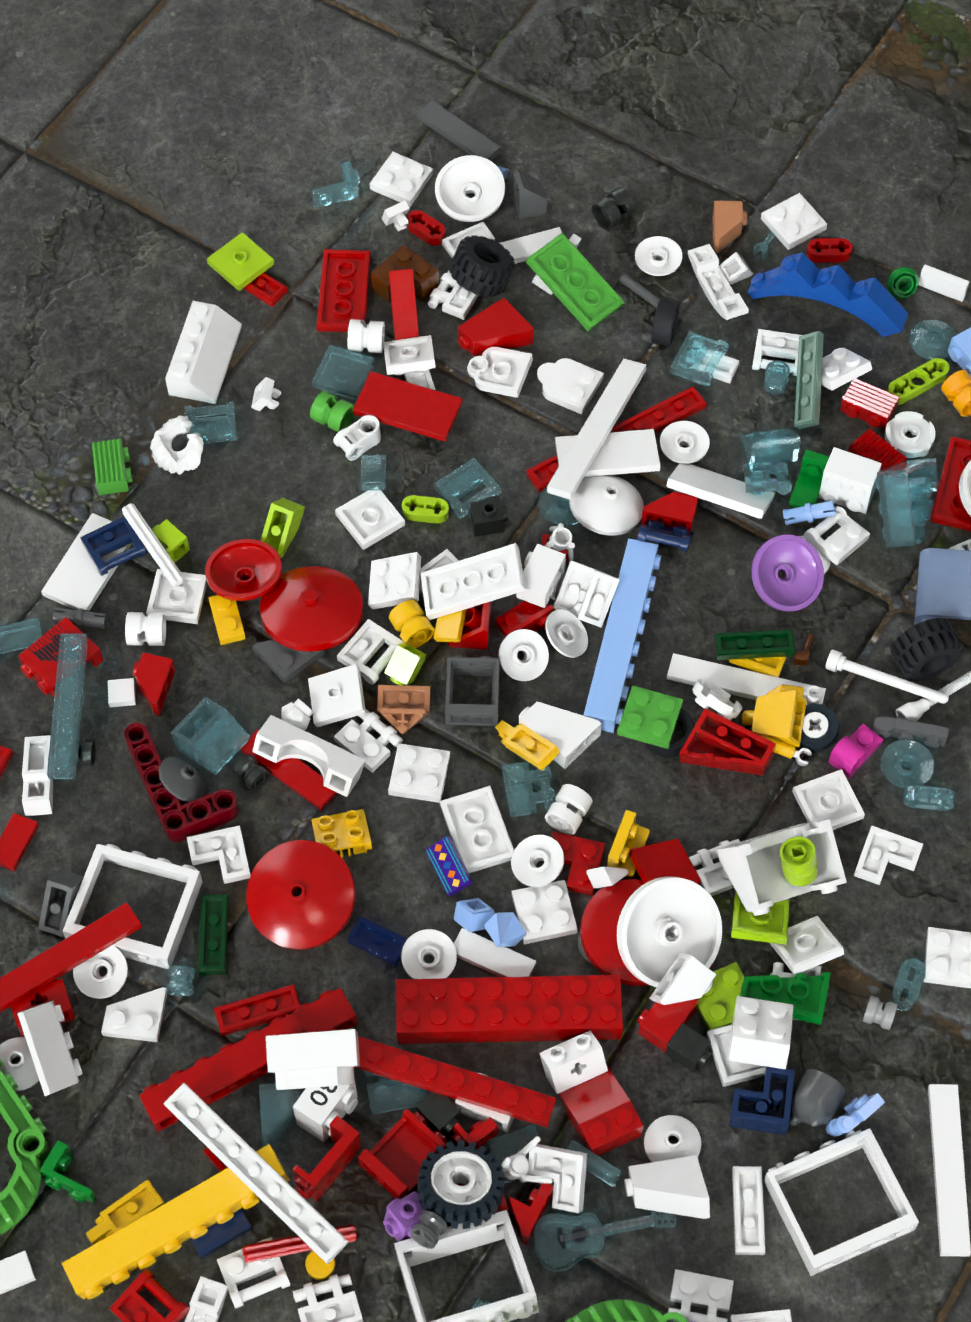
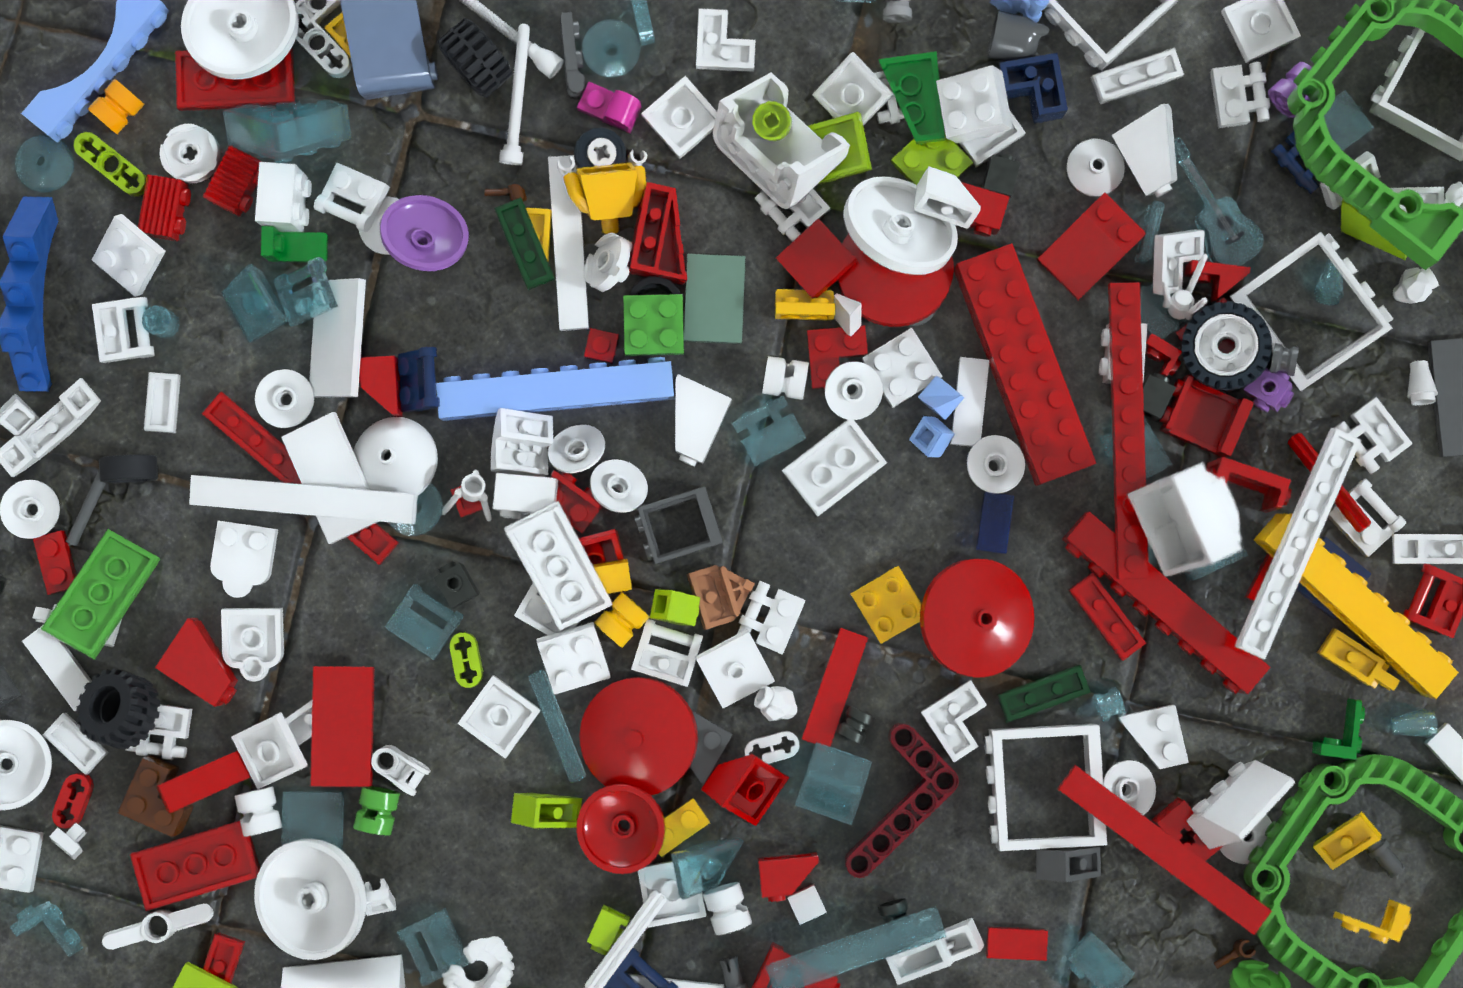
camera: 110 degrees left, 25 degrees up
(46, 1247) = (1417, 723): none -> clear light blue cone
(182, 779) = (898, 800): dark grey dish -> none
(187, 617) = (703, 865): none -> clear light blue slope
(234, 672) = (745, 786): none -> red slope
(254, 705) = (774, 739): none -> white beam
(281, 741) = (821, 632): white arch -> none
(284, 349) = (310, 899): none -> white dish
(308, 245) = (142, 931): none -> white piece
(343, 556) = (557, 726): none -> clear light blue axle
(373, 472) = (442, 733): clear light blue tile -> none
(419, 773) = (791, 549): white plate -> none
(449, 866) = (888, 480): dark purple tile -> none
(527, 744) = (727, 444): yellow hinge -> none
(573, 1062) = (1058, 282): white brick -> none
(613, 263) = (55, 561): none -> red plate
(649, 679) = (601, 346): none -> red plate
(658, 781) = (714, 298): none -> sand green tile
(692, 354) = (164, 426): clear light blue plate -> none
(809, 380) = (156, 282): sand green tile -> none
(809, 512) = (334, 233): light blue pin -> none

